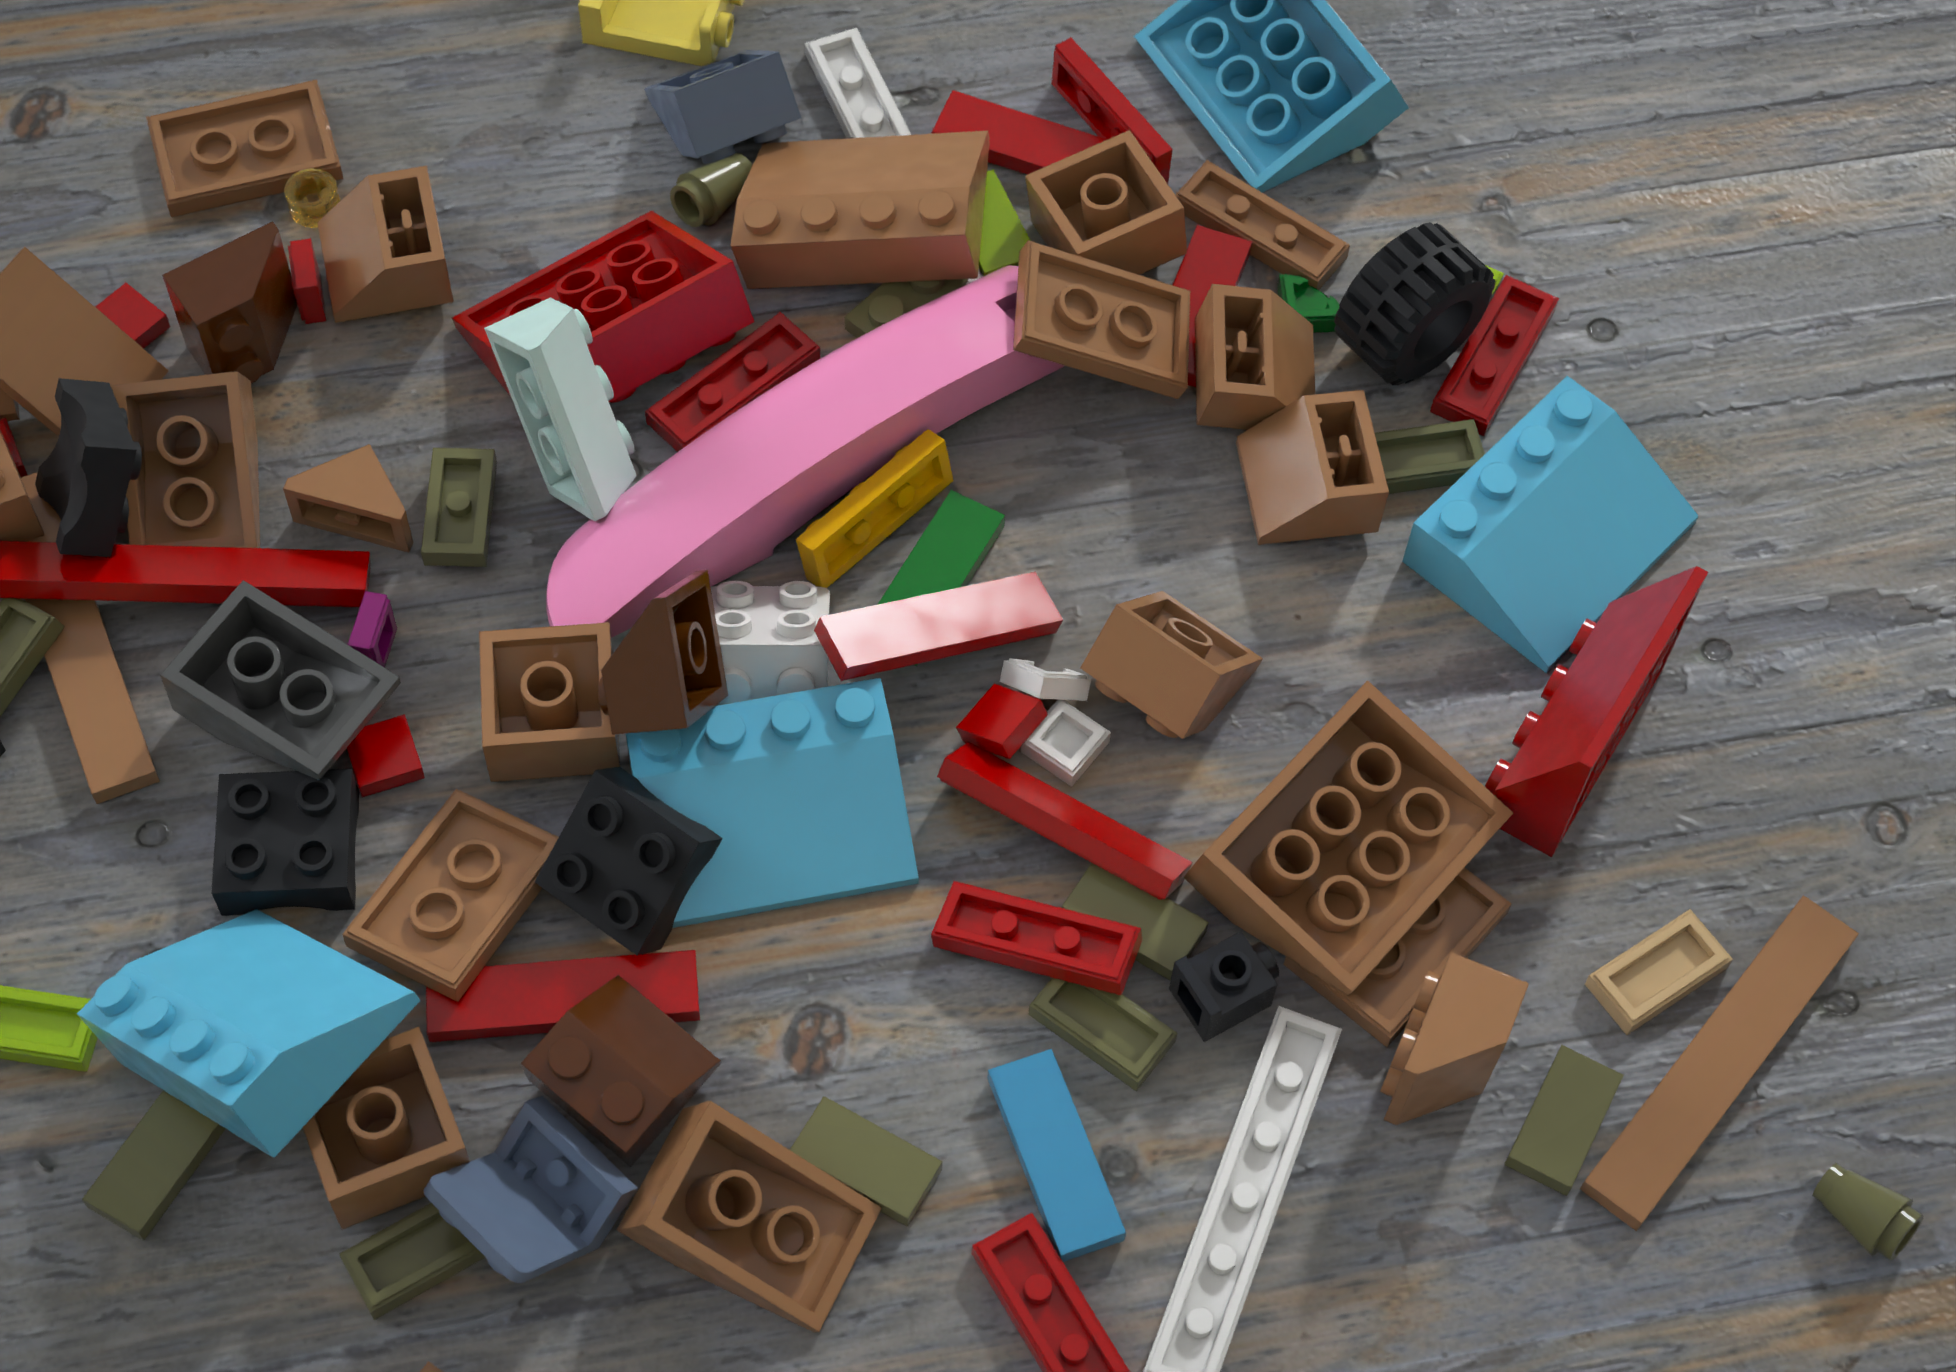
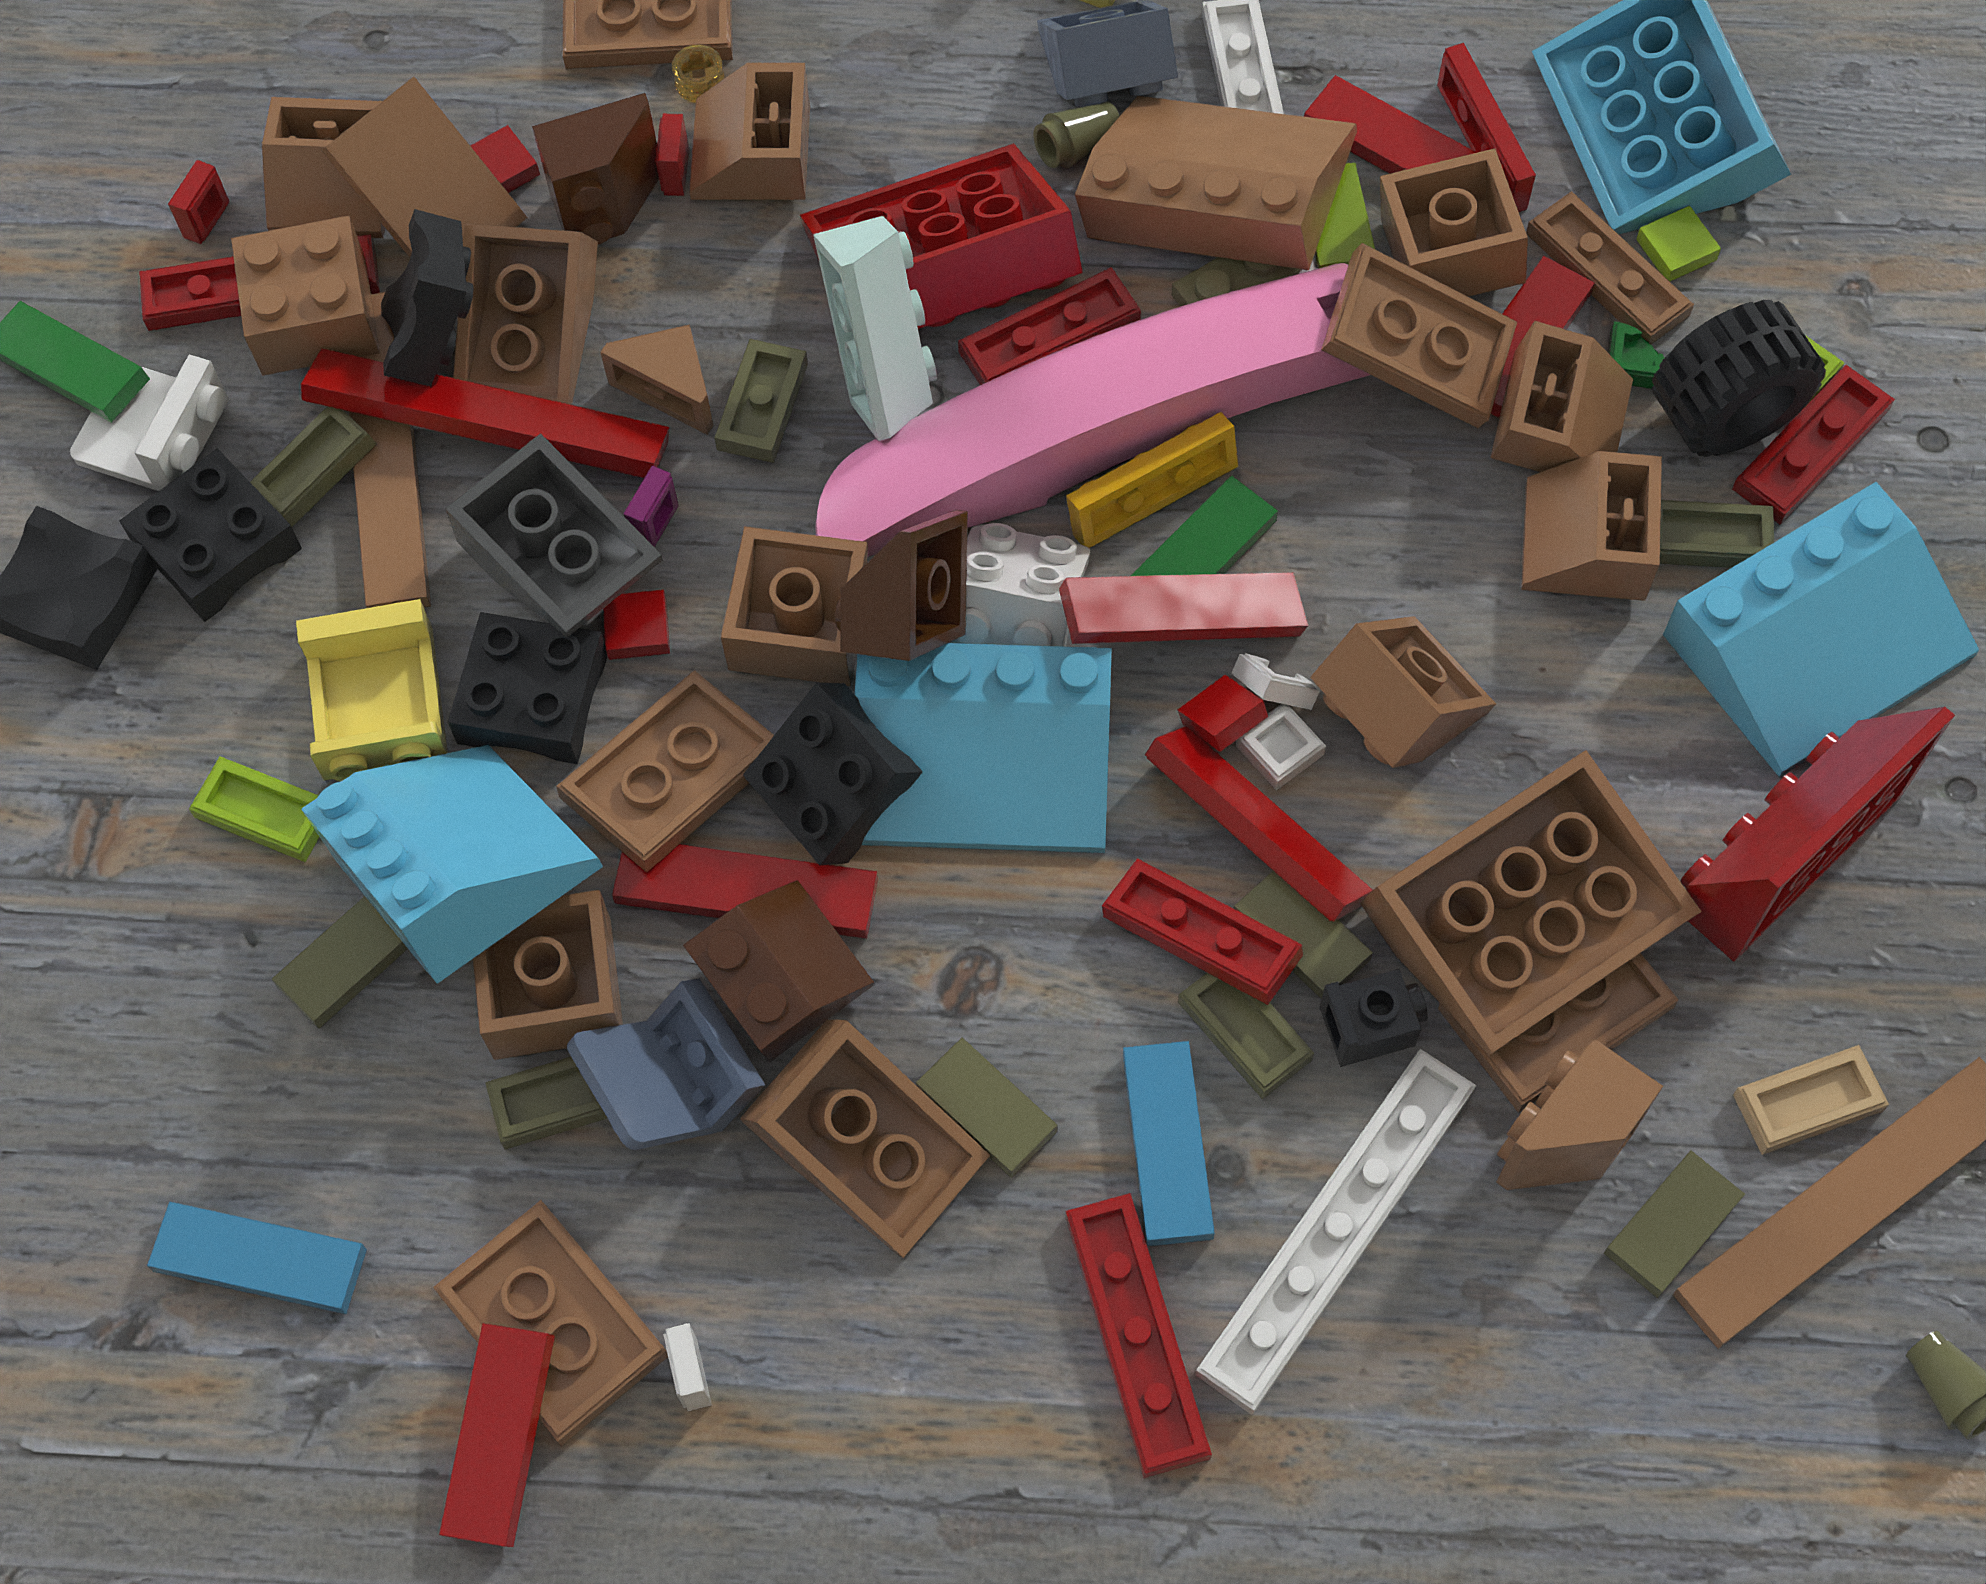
camera: 20 degrees right, 5 degrees up
(119, 876) = (372, 688): none -> light yellow panel
(1320, 191) = (1678, 243): none -> lime tile

